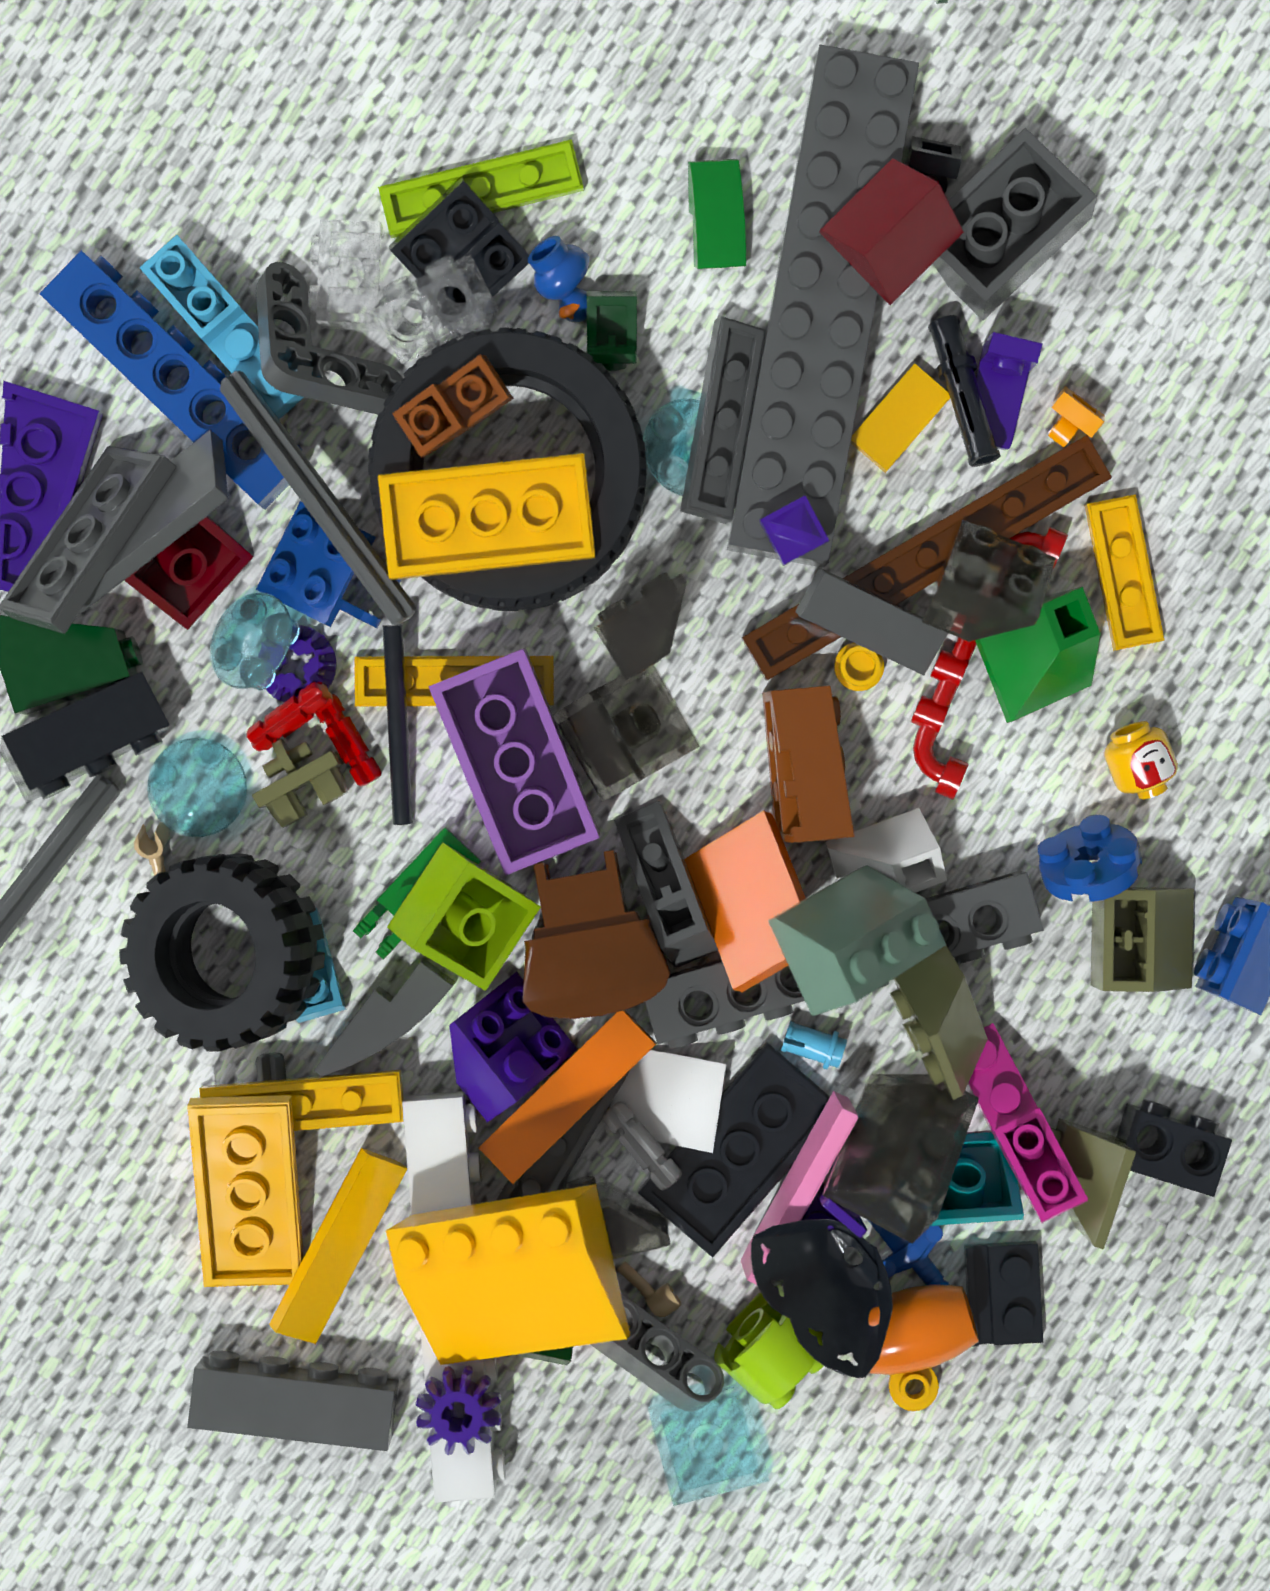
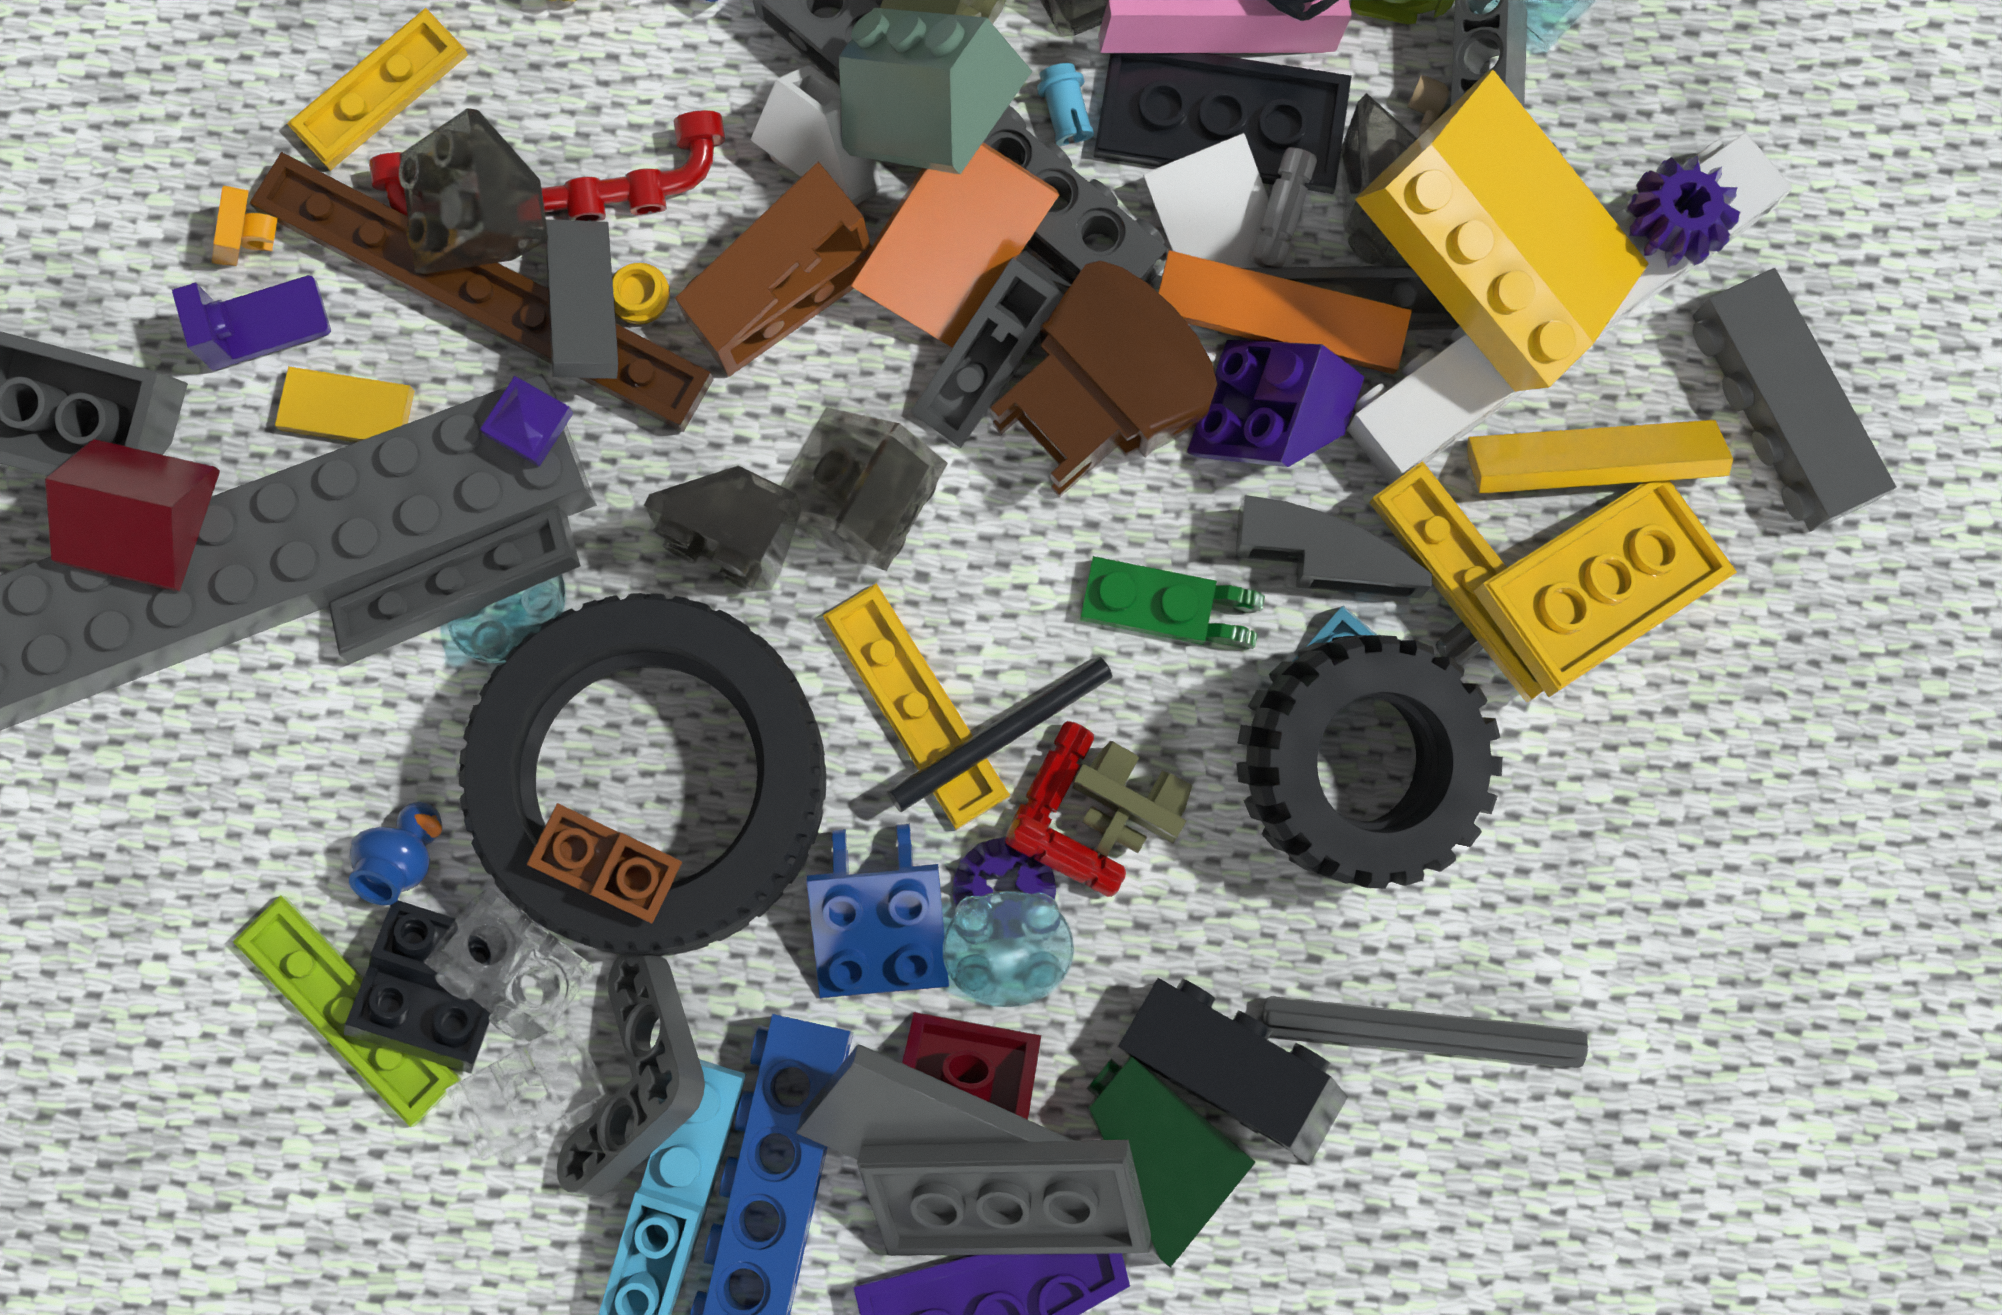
camera: 125 degrees left, 10 degrees down
(153, 849) = (1309, 916): tan hand -> none
(197, 787) = (1208, 913): clear light blue dish -> none
(317, 497) = (799, 964): dark grey axle -> none
(463, 917) = (1163, 527): lime brick -> none
(486, 516) = (707, 752): yellow tile -> none
(515, 761) = (959, 576): medium lavender brick -> none
(612, 328) = (418, 765): dark green bracket -> none
(717, 213) = (225, 726): green slope -> none
(935, 159) = (30, 527): black tile -> none
(958, 371) = (224, 407): black pin -> none
(1043, 660) = (520, 99): green slope -> none

